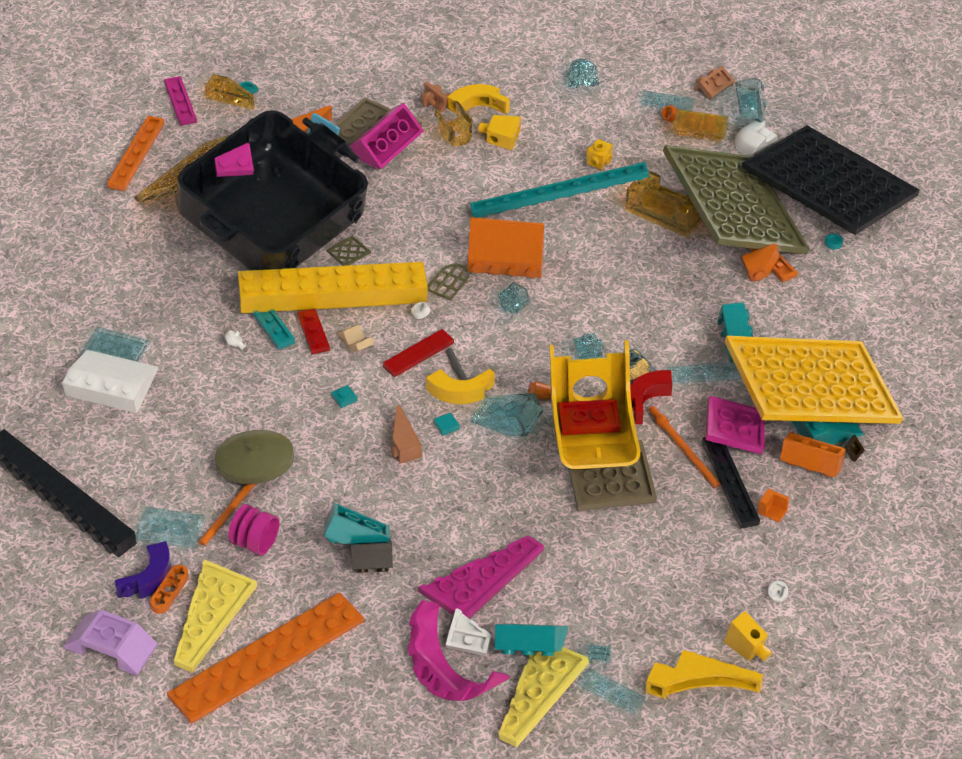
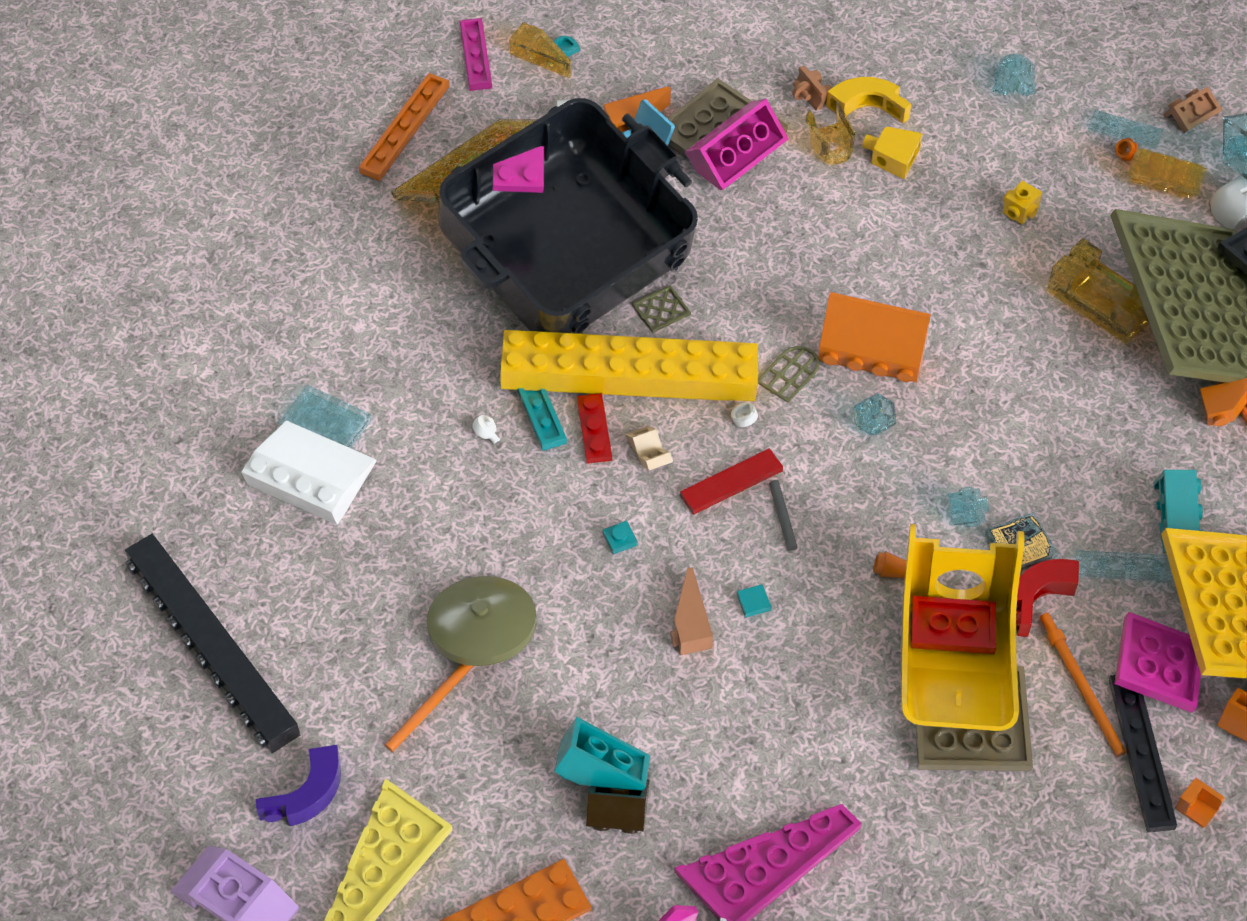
camera: 10 degrees right, 10 degrees up
(169, 581) = (312, 829): orange beam -> none
(171, 526) = (349, 716): clear light blue tile -> none
(253, 529) = (459, 743): dark pink wheel -> none
(459, 391) = (779, 552): yellow arch -> none
(509, 413) = (841, 598): clear light blue slope -> none
(559, 190) = (961, 254): teal plate -> none

